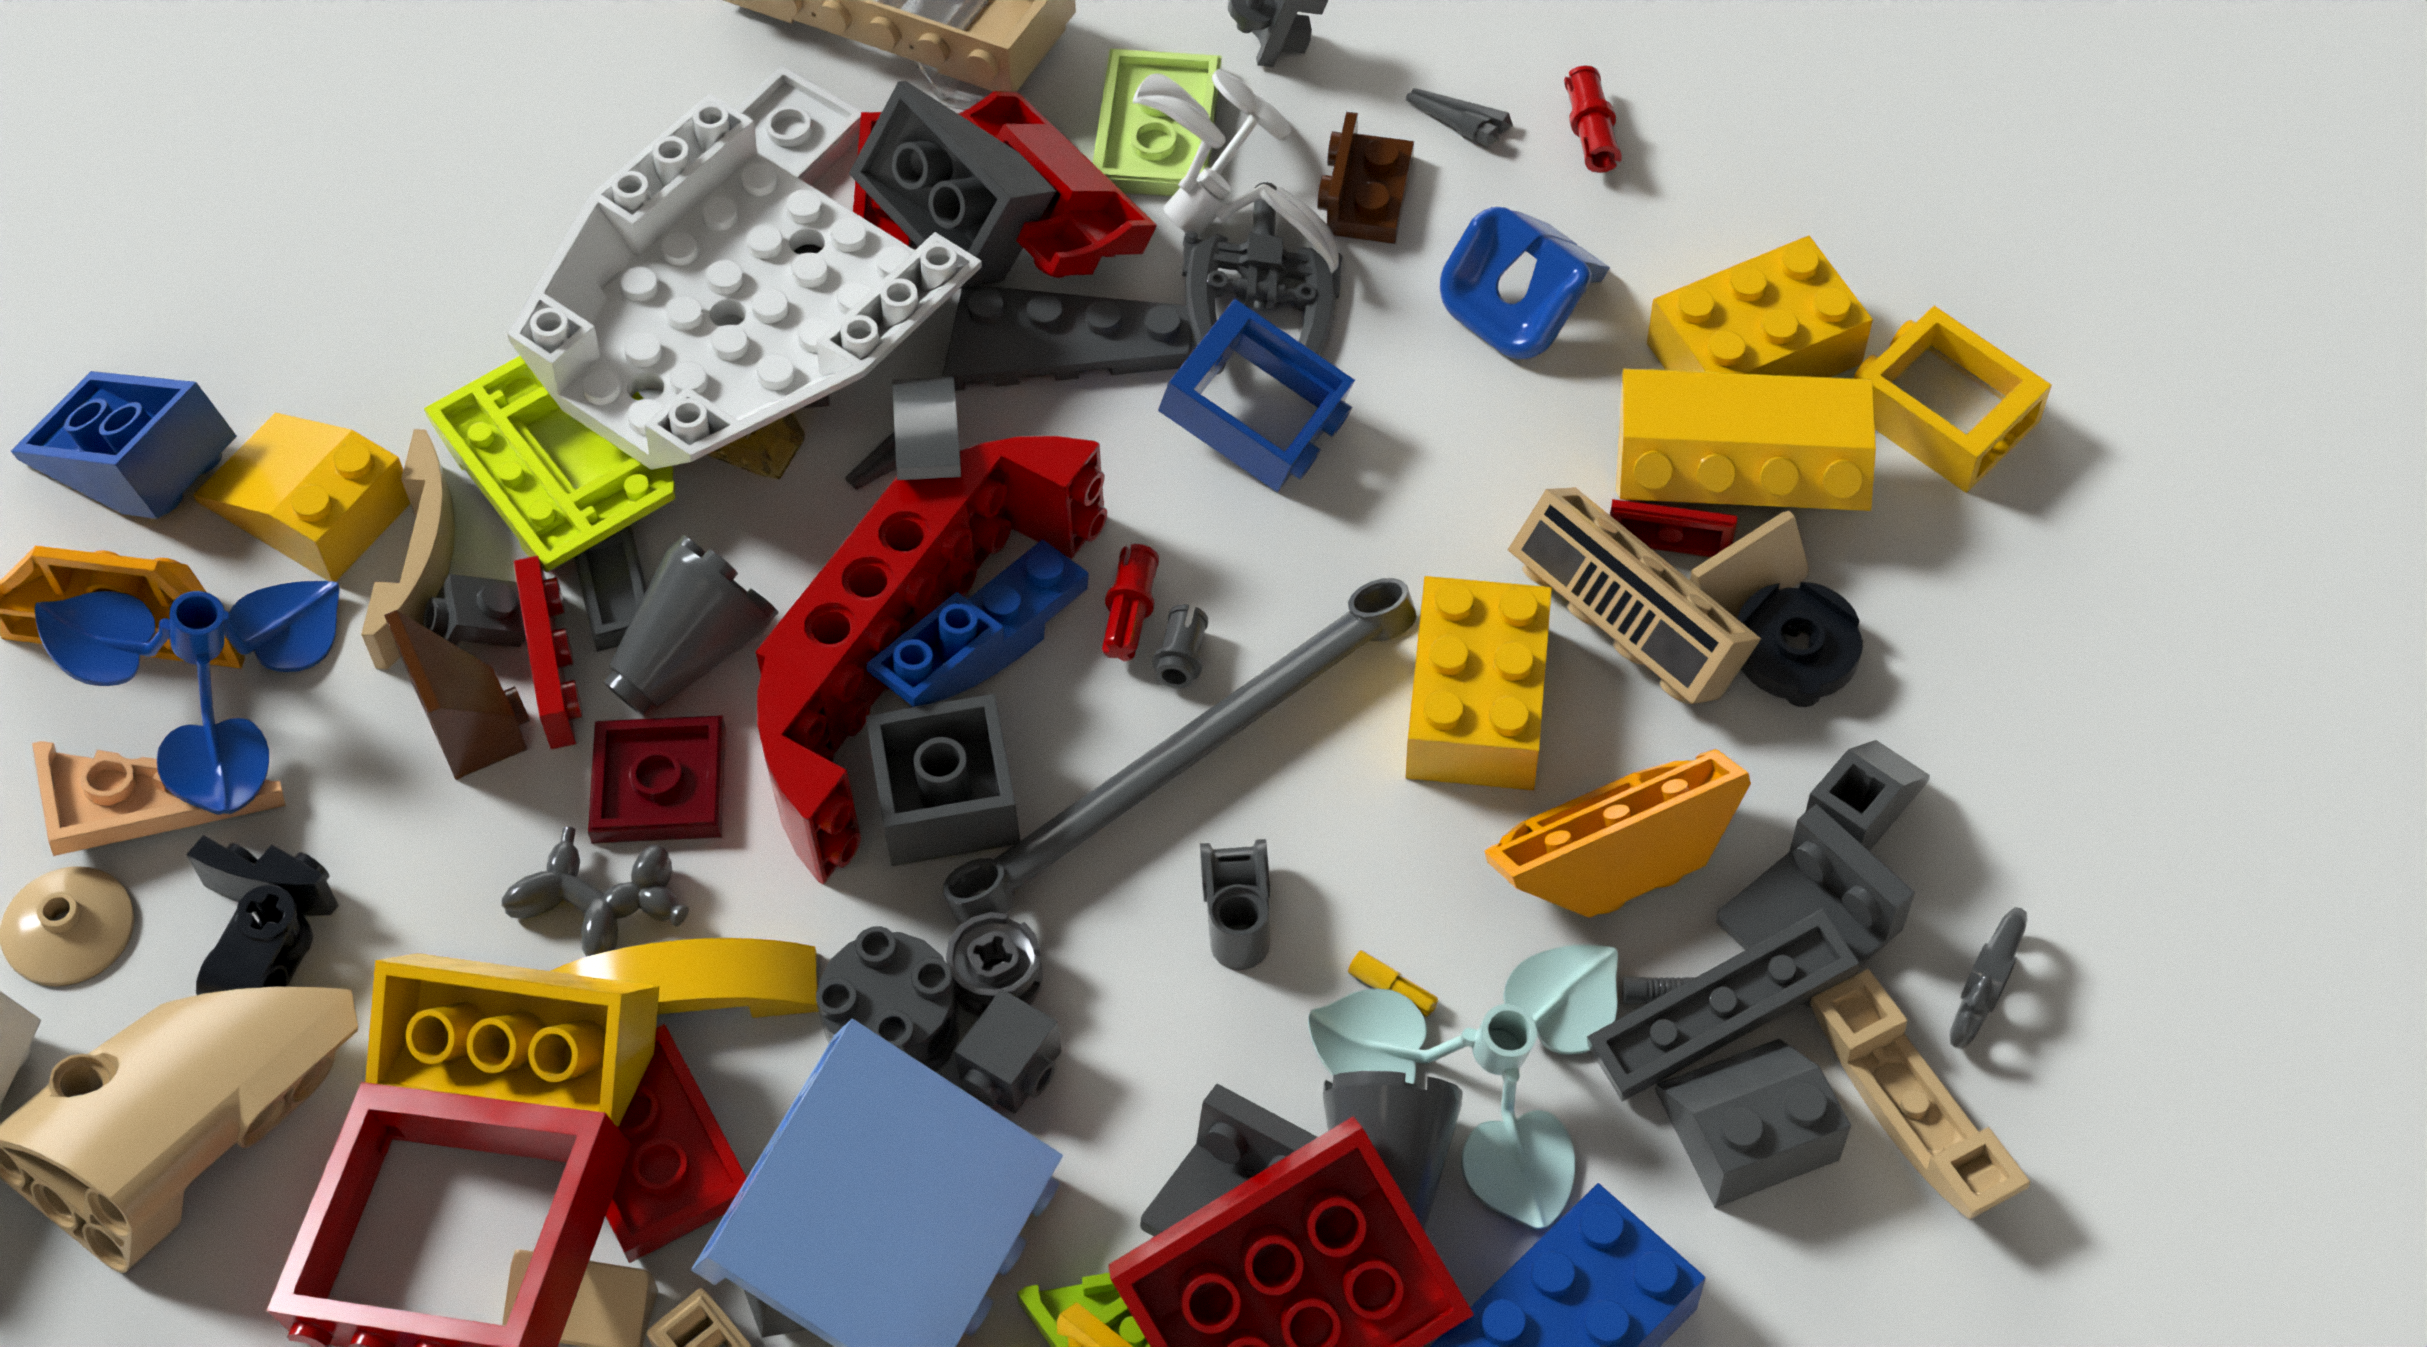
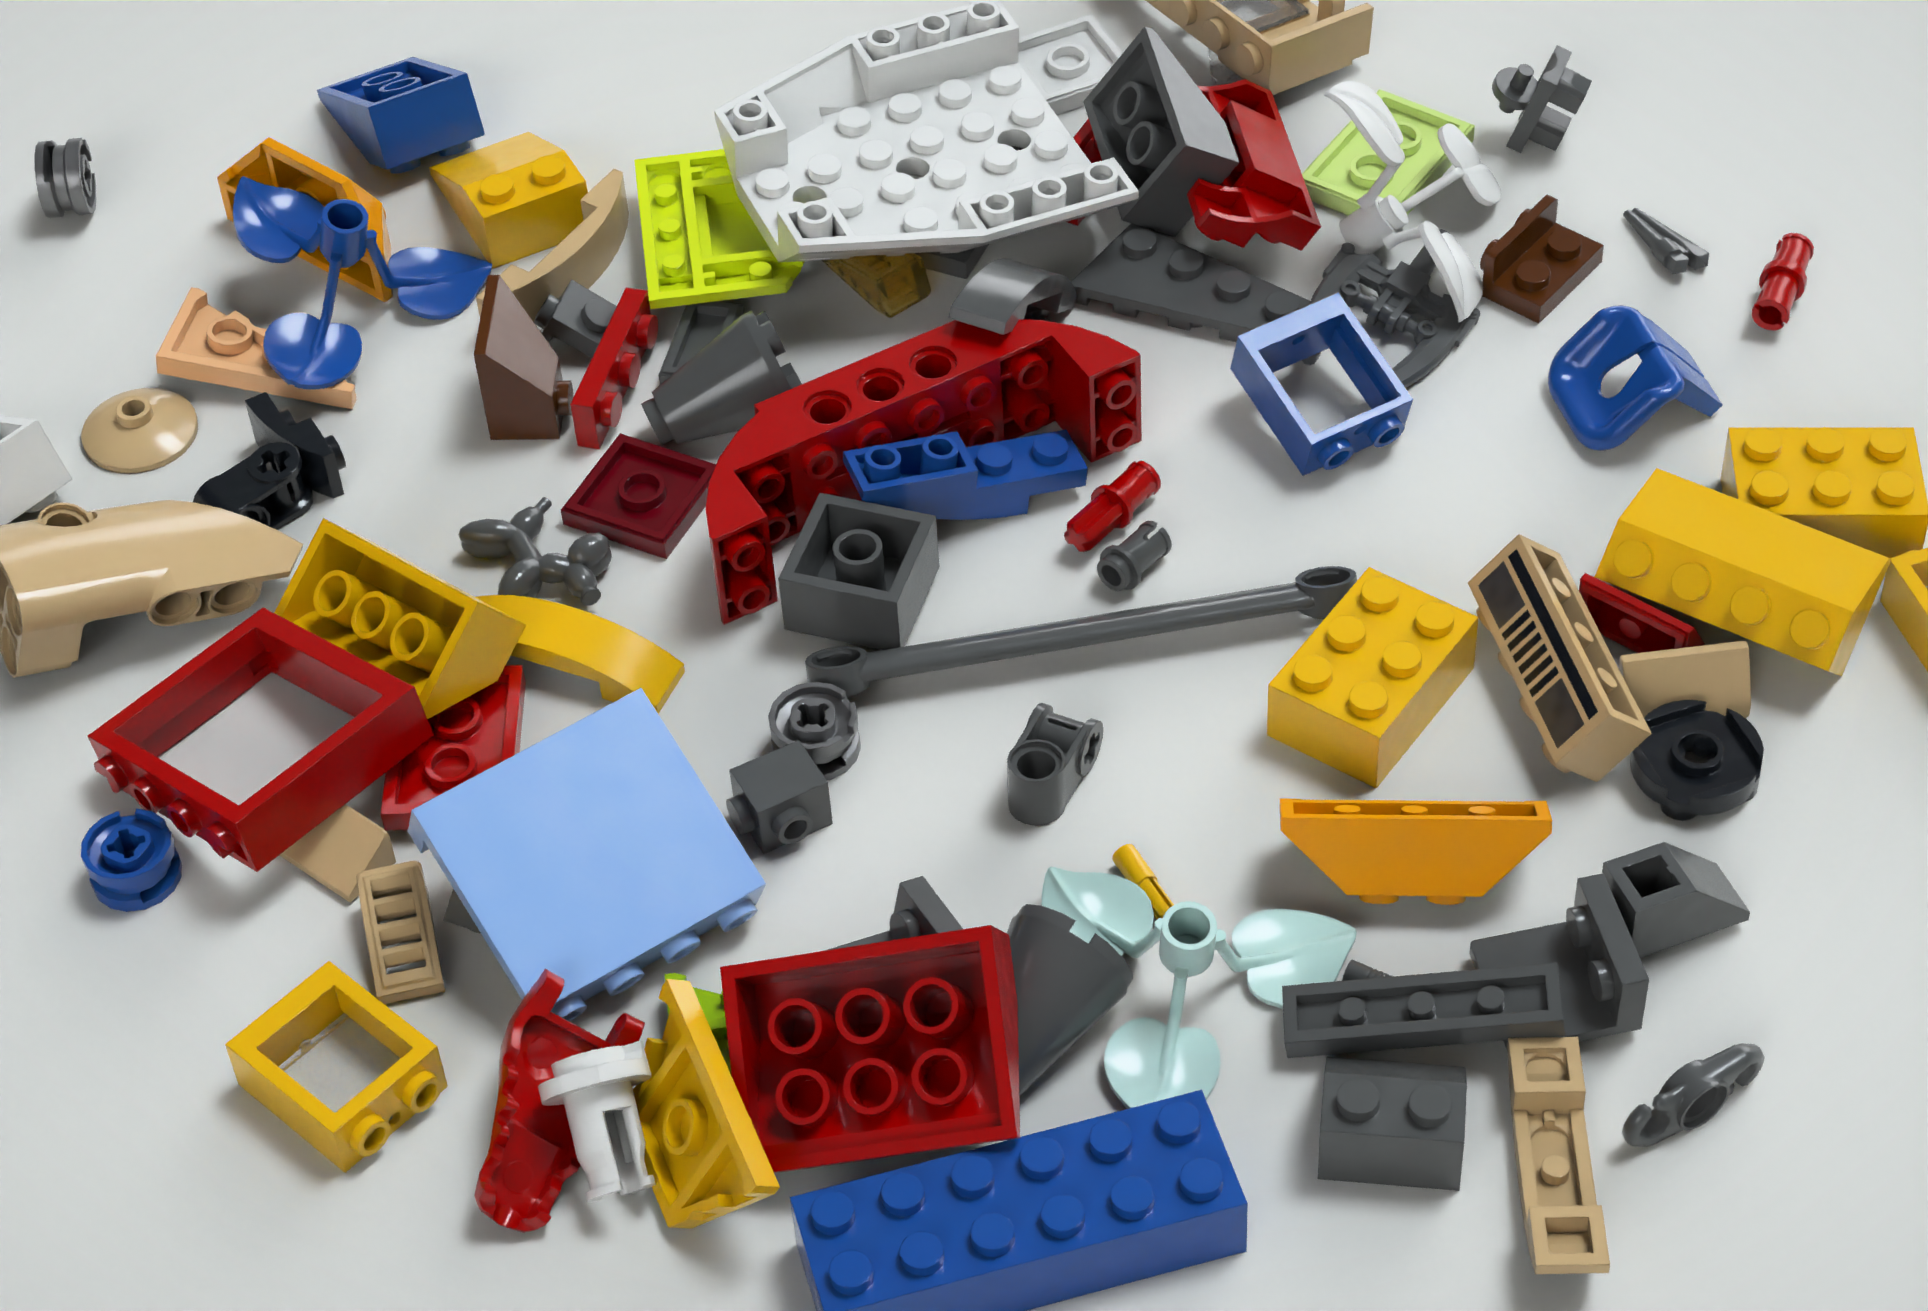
camera: 30 degrees right, 10 degrees down
(895, 990) = (712, 713): dark grey brick -> none

